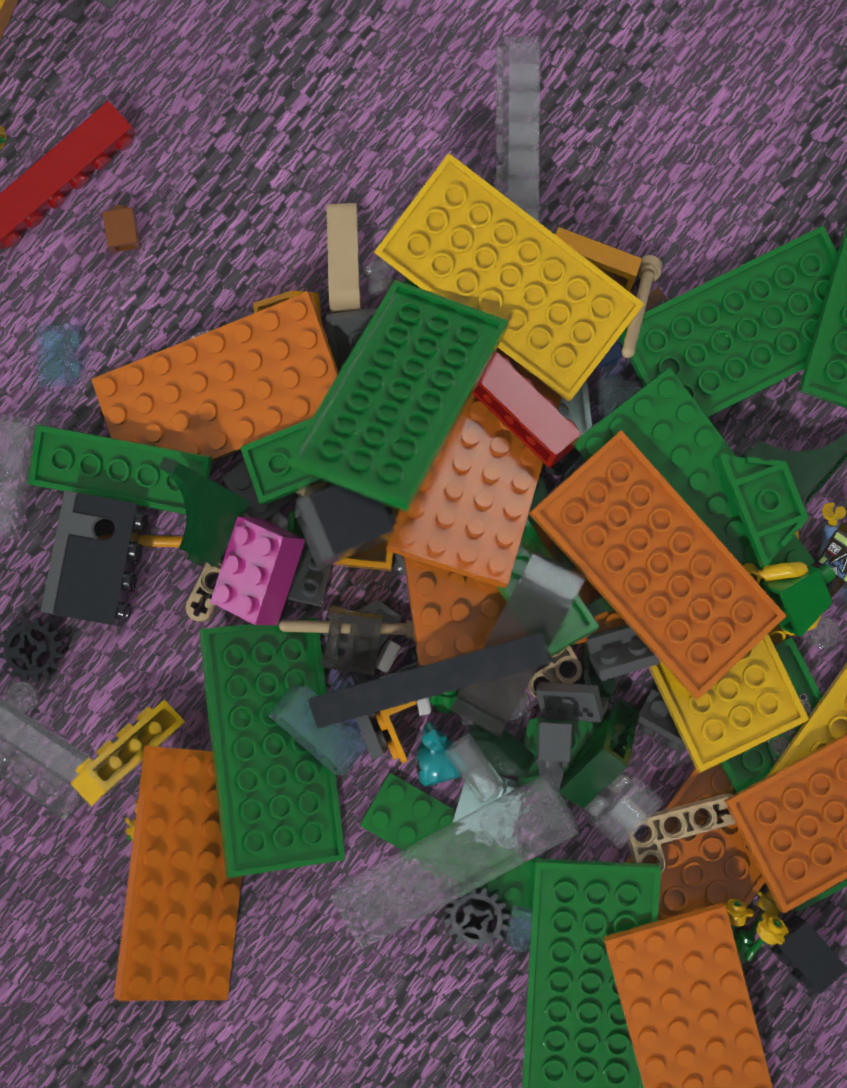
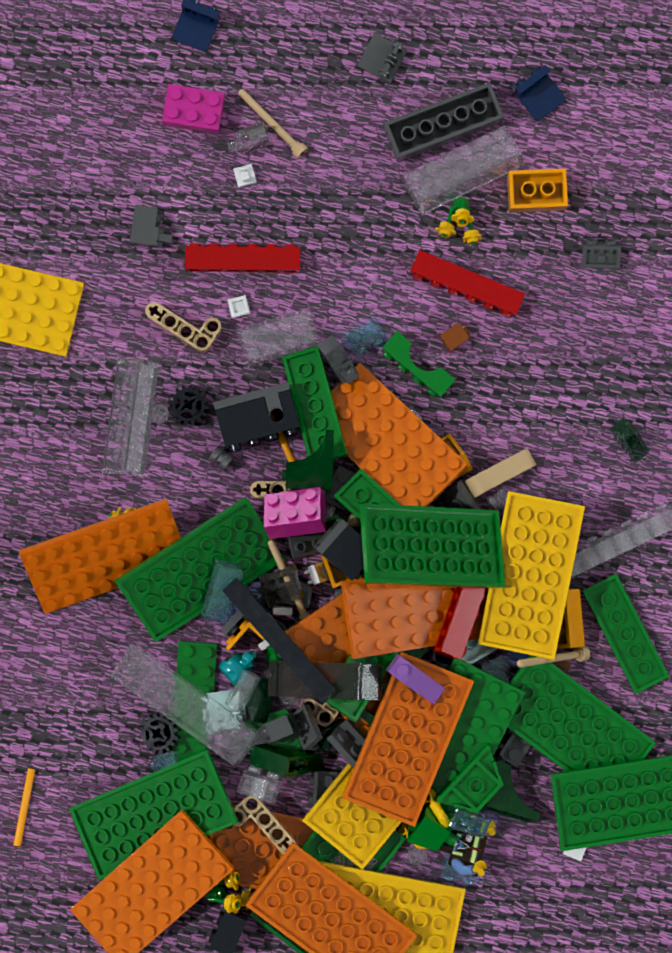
camera: 55 degrees right, 0 degrees up
(70, 405) = (338, 360): none -> dark grey hinge
(125, 754) = (153, 488): yellow brick -> none
(127, 640) = (220, 457): none -> flat silver wheel
(169, 286) = (436, 381): none -> green arch
(359, 581) = (318, 573): none -> tile
(384, 58) = (629, 440): none -> clear green slope
(578, 511) = (415, 679): none -> medium lavender slope
(651, 195) = (625, 633): none -> green plate
(737, 426) = (513, 749): none -> dark grey bracket
(816, 534) = (470, 822): none -> clear light blue slope

